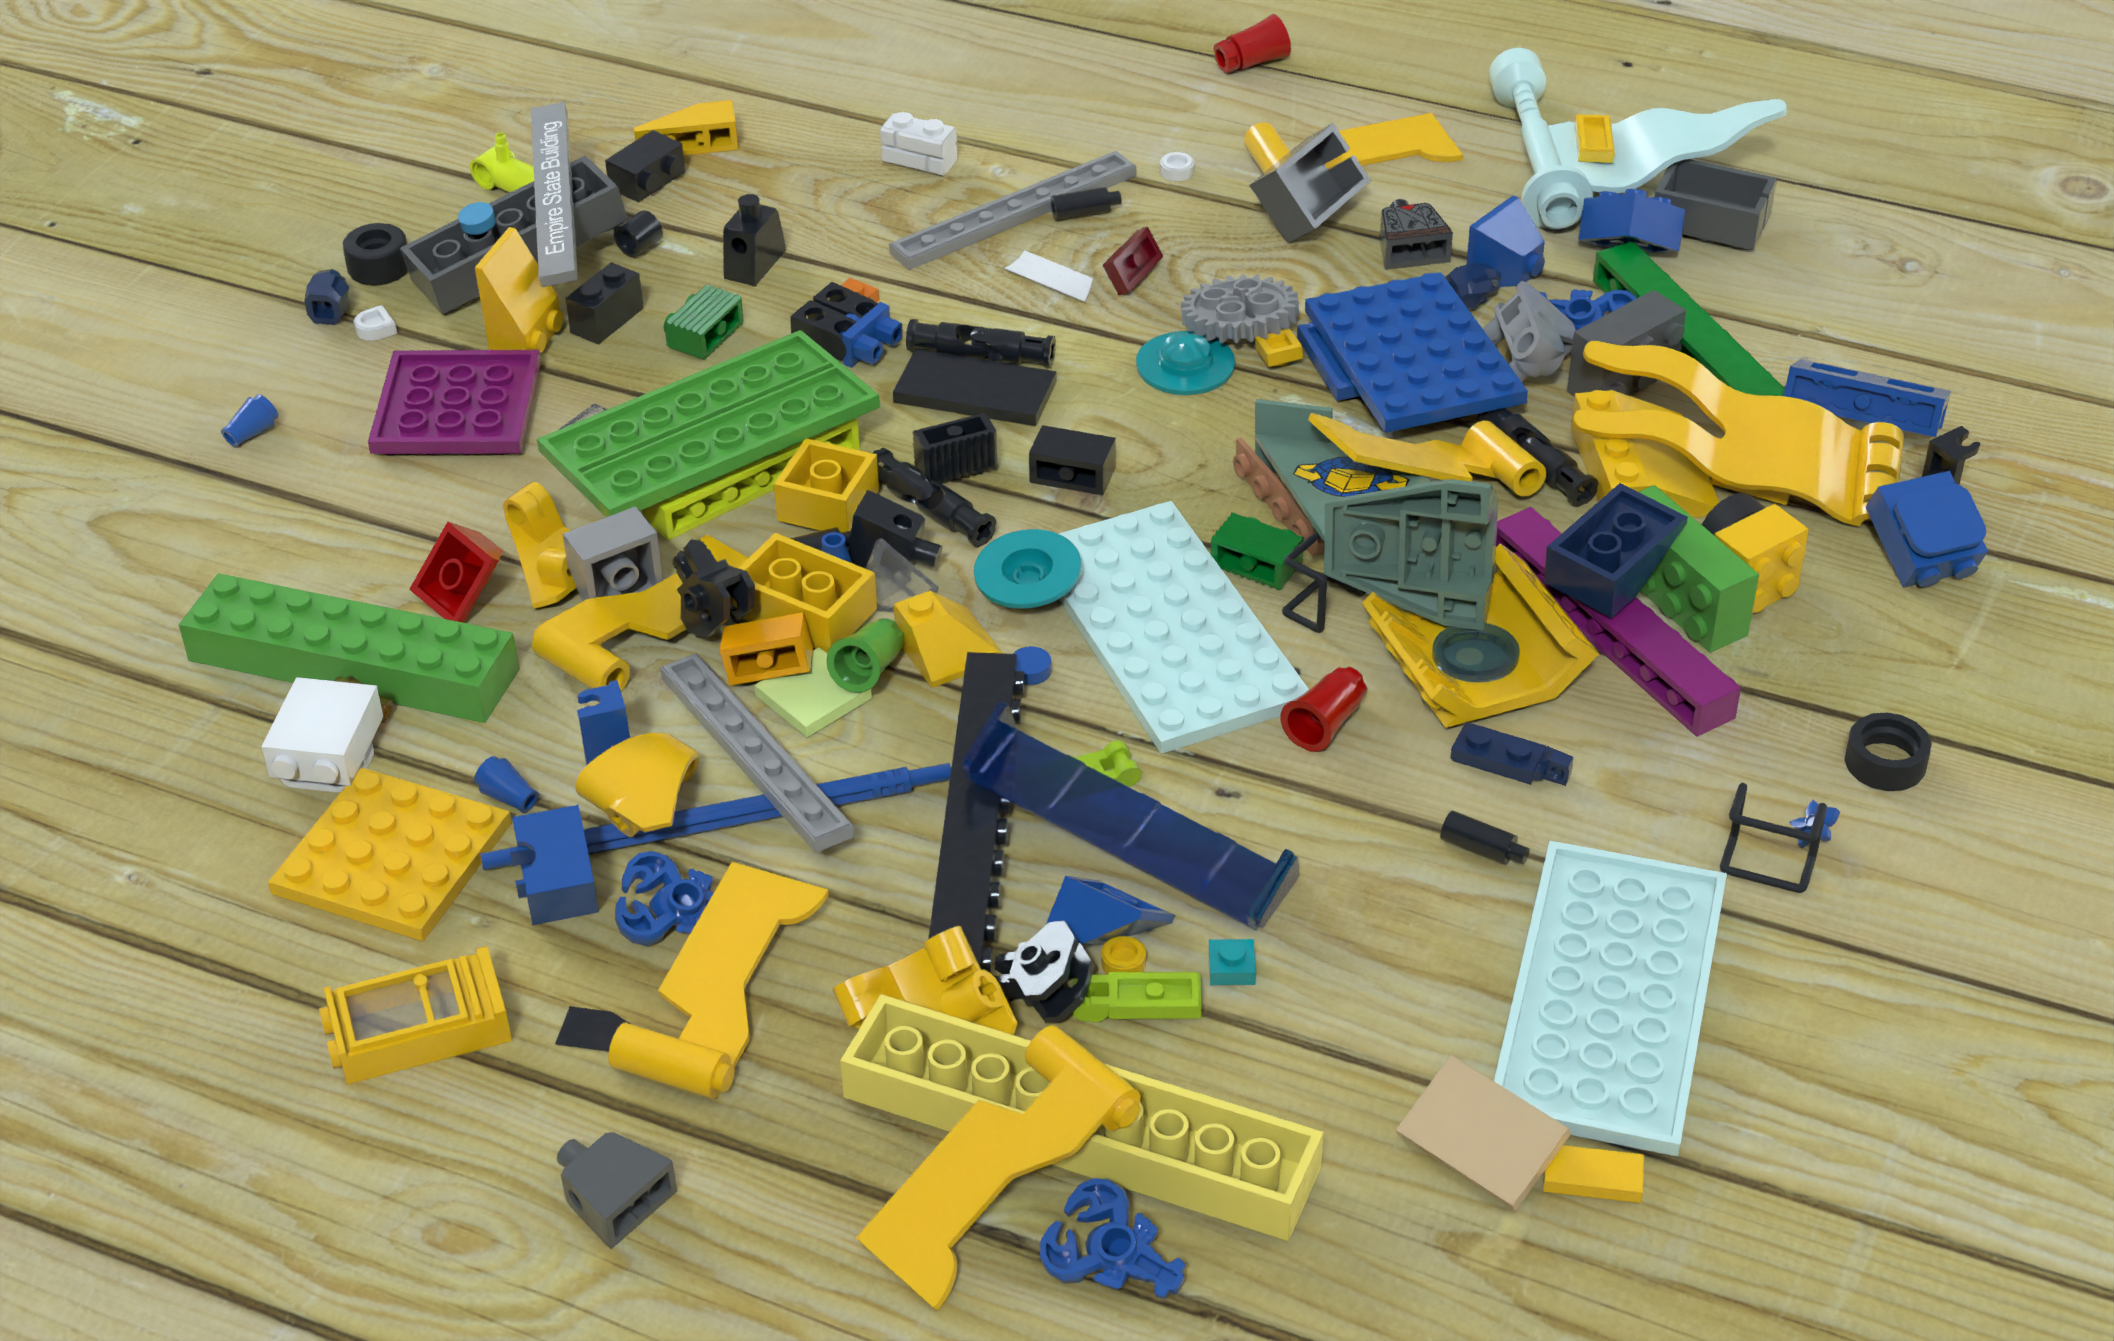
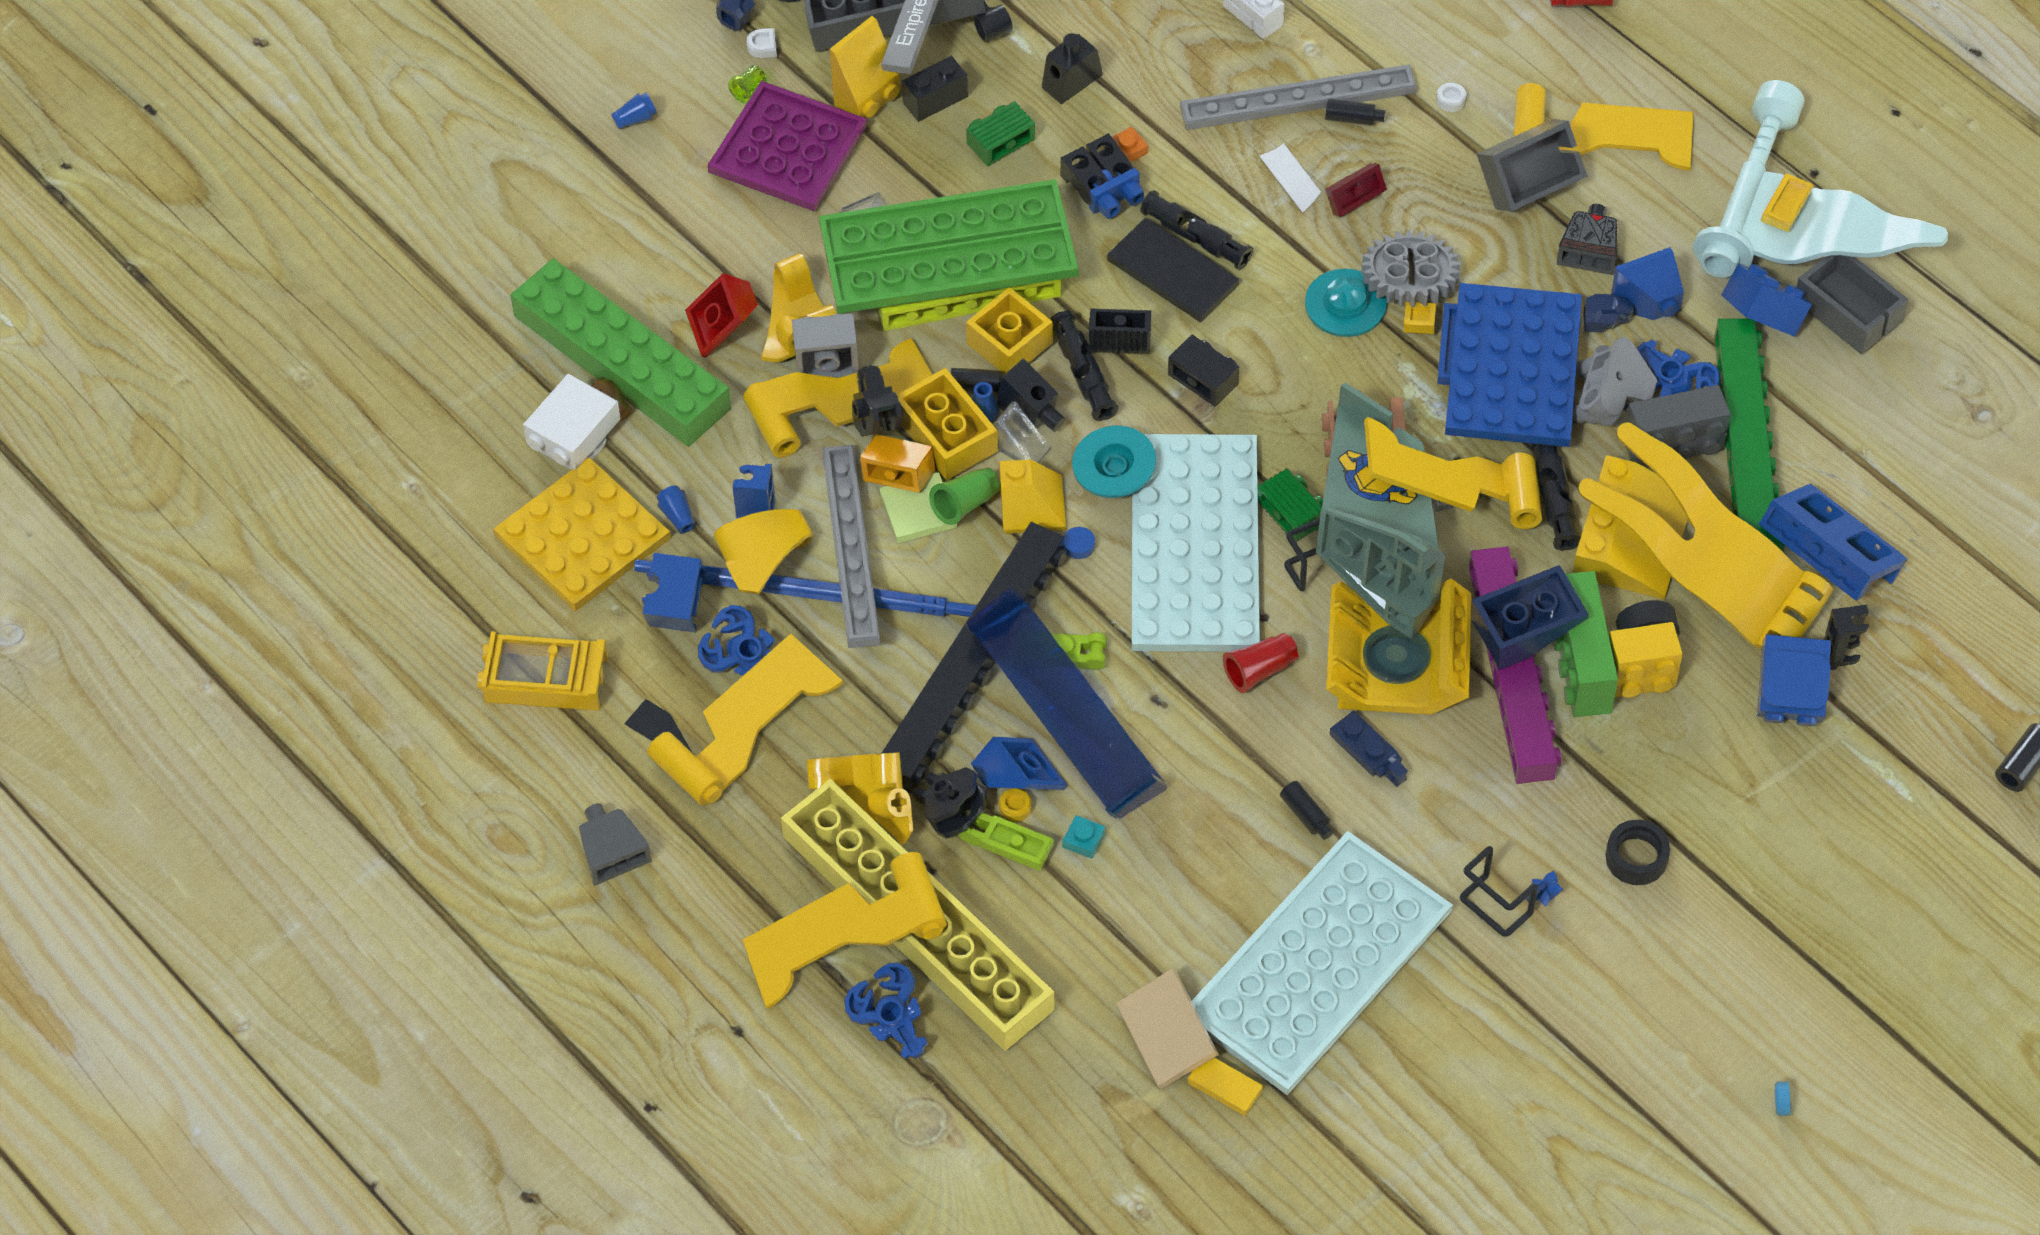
camera: 25 degrees right, 15 degrees up
(373, 362) = (746, 83): none -> clear neon green bush

